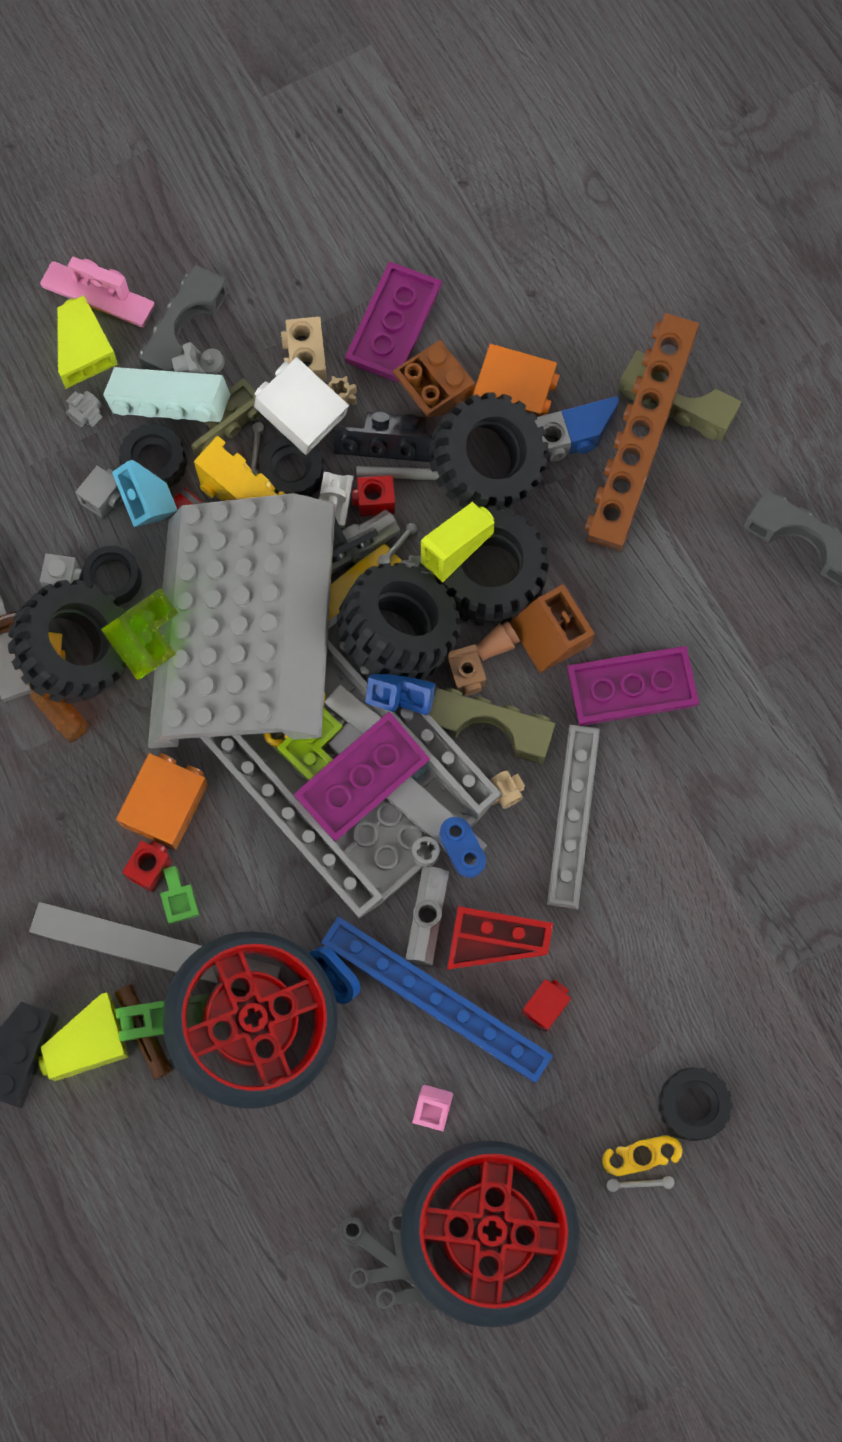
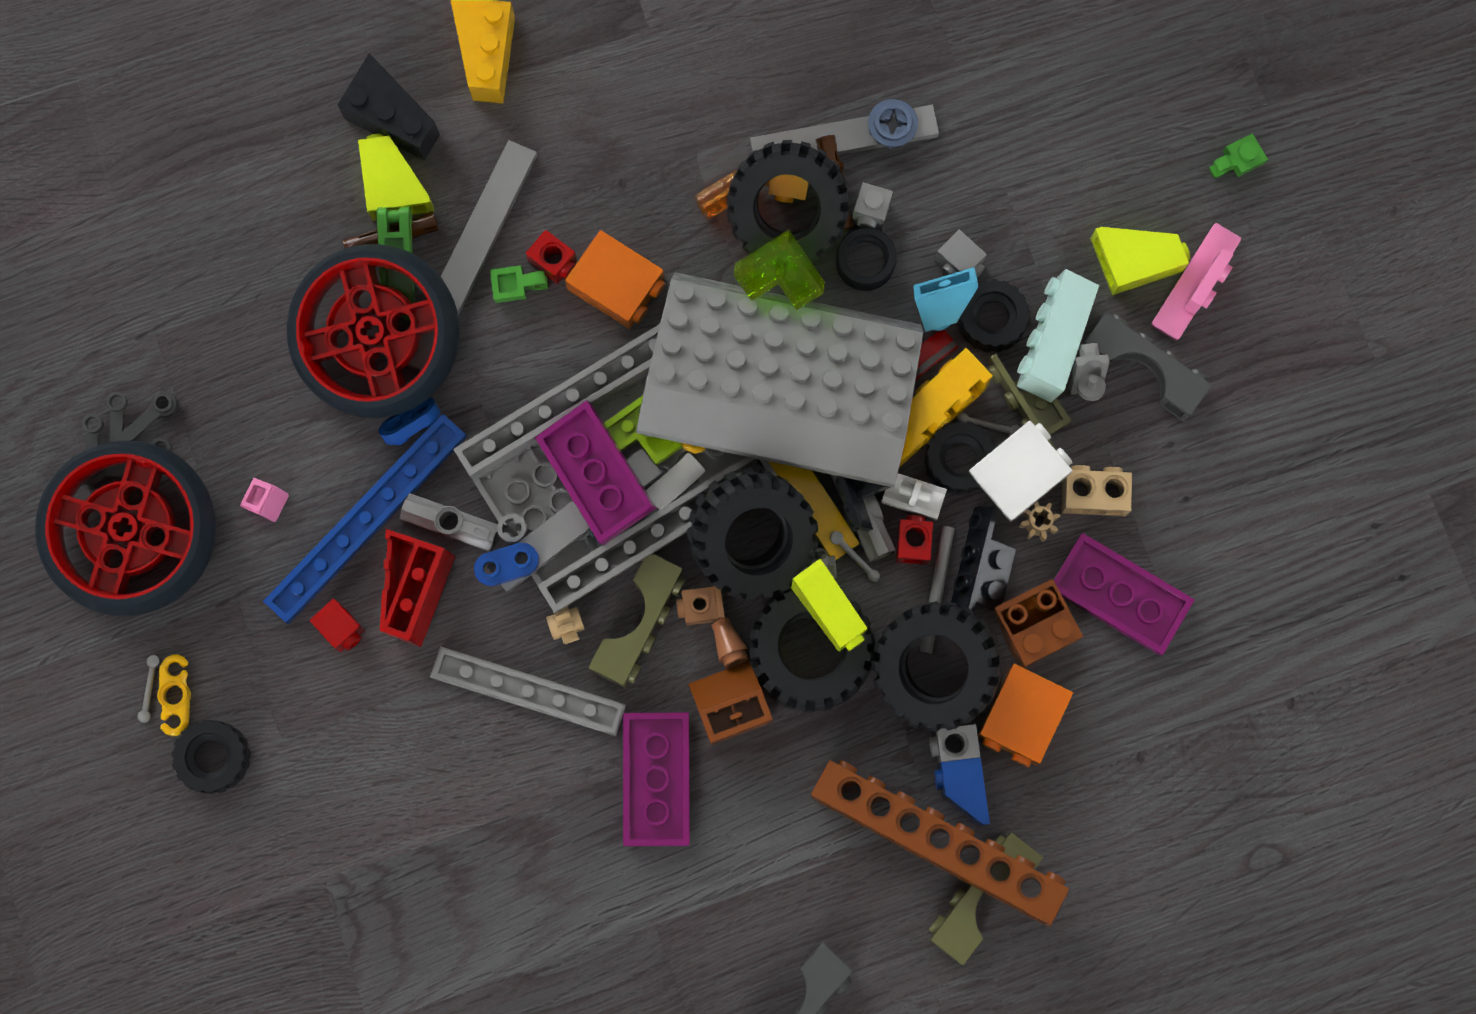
camera: 100 degrees right, 5 degrees up
(84, 408) = (1058, 251): light grey gear -> none
(394, 691) = (677, 516): blue slope -> none

